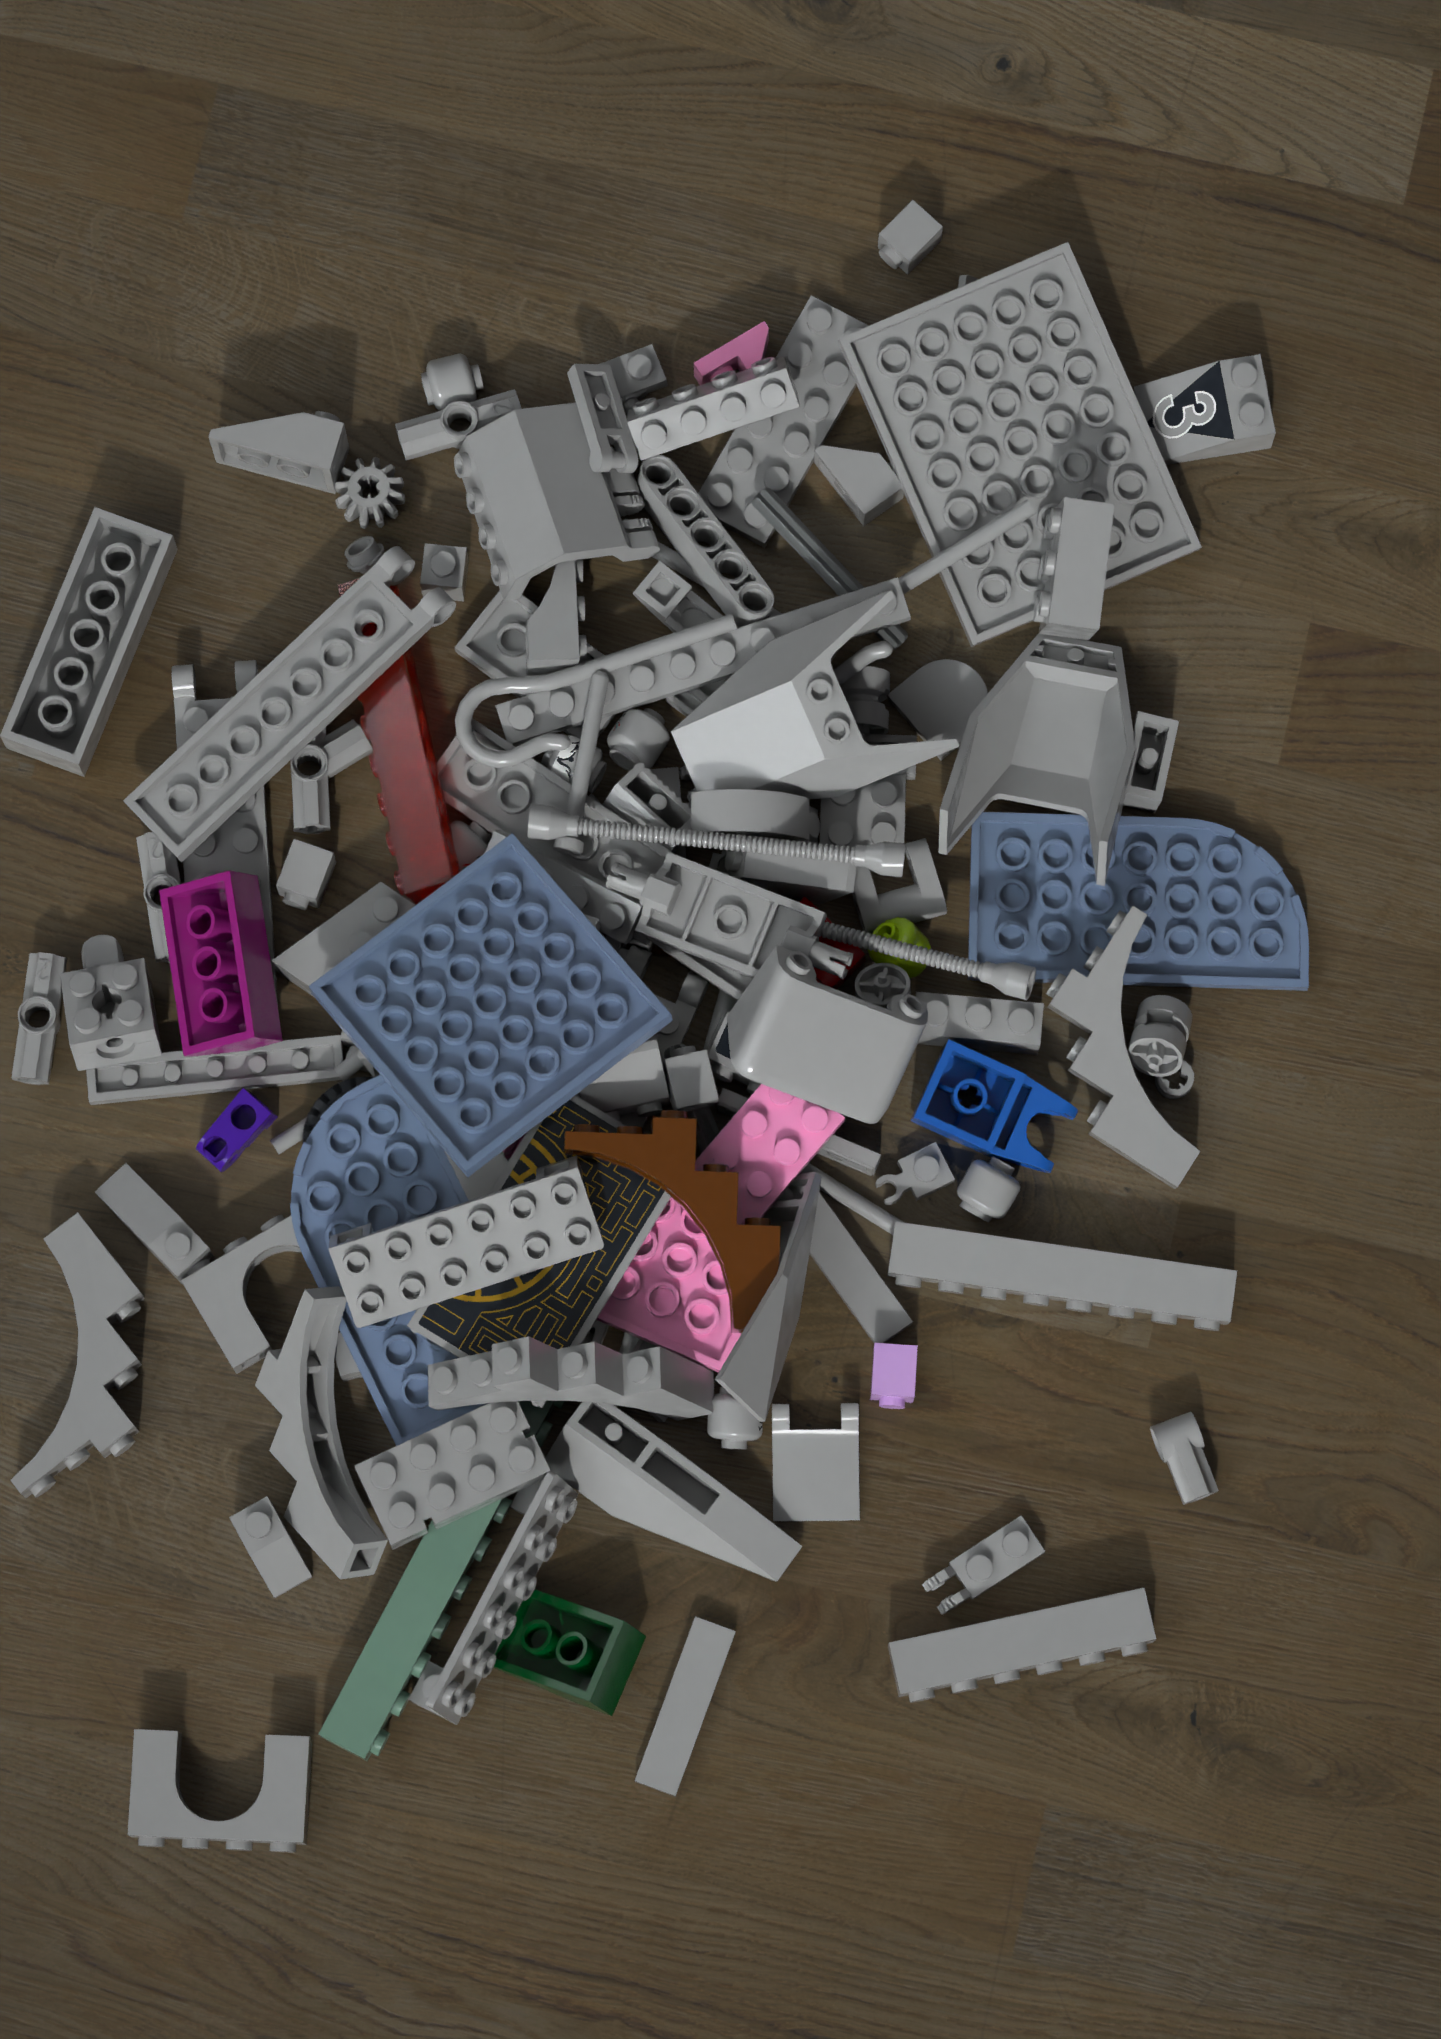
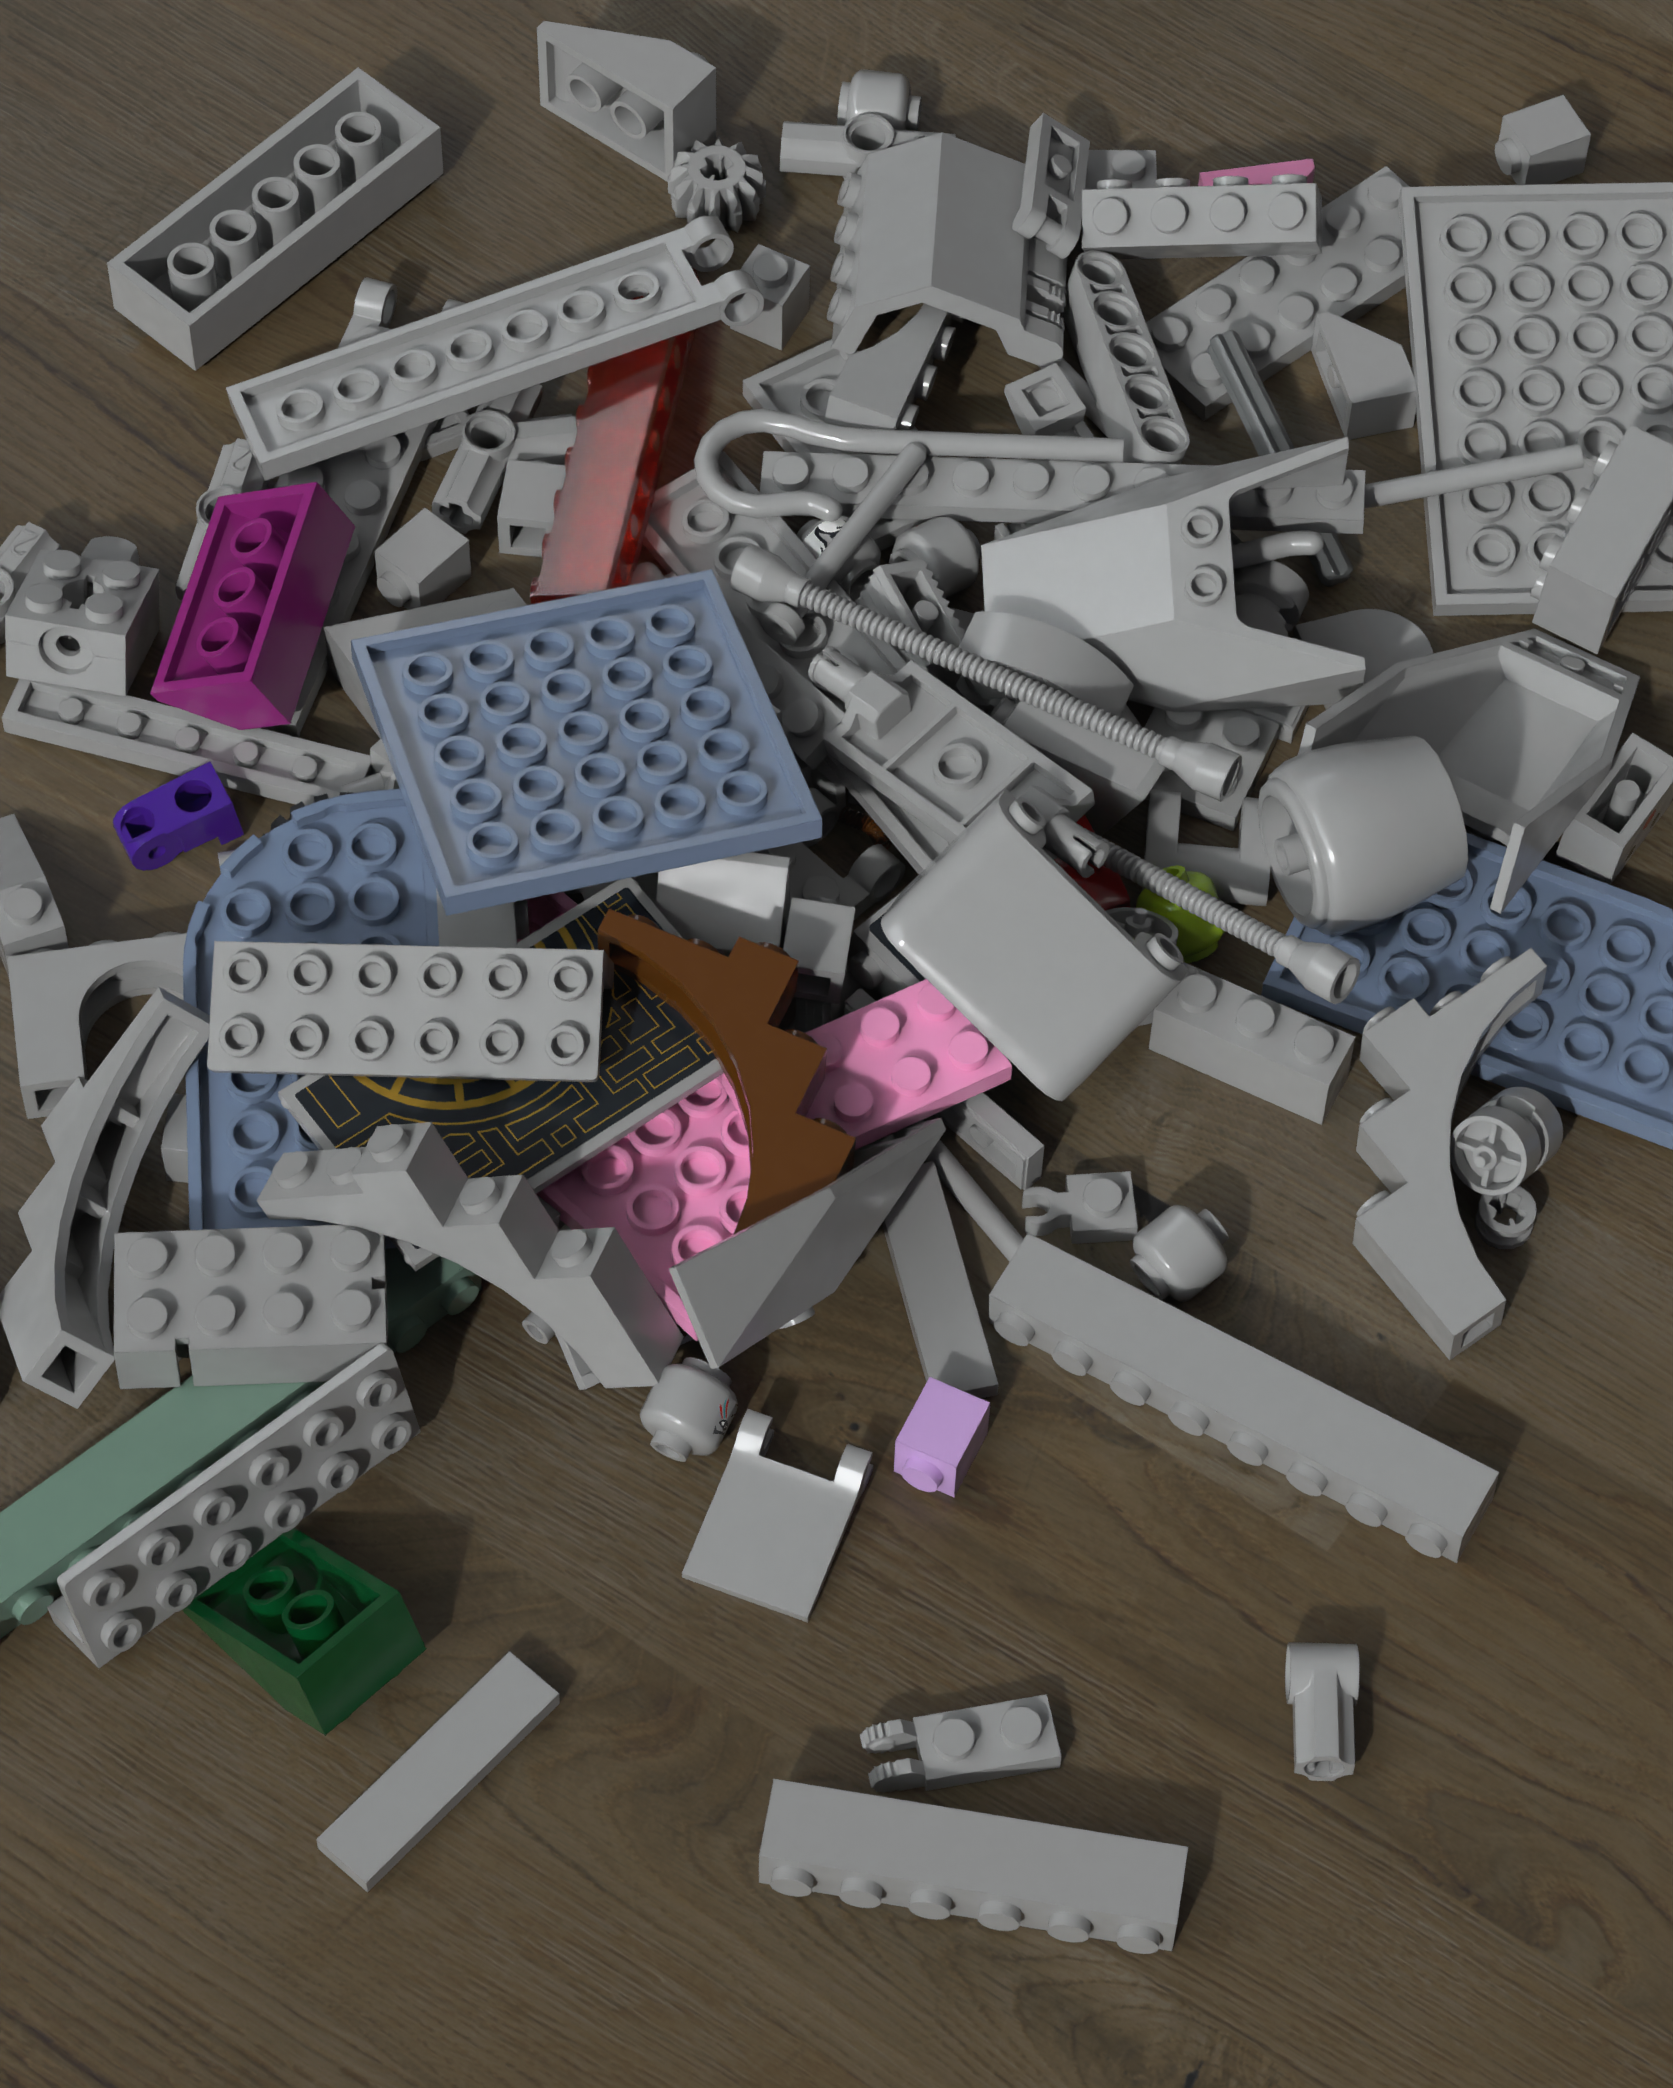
camera: 20 degrees right, 20 degrees down
(357, 801) = (527, 505): none -> light grey brick
(662, 1491) = (542, 1466): light grey wedge -> none
(997, 861) = (1361, 831): none -> light grey piece
(1003, 1110) = (1233, 1162): blue brick -> none

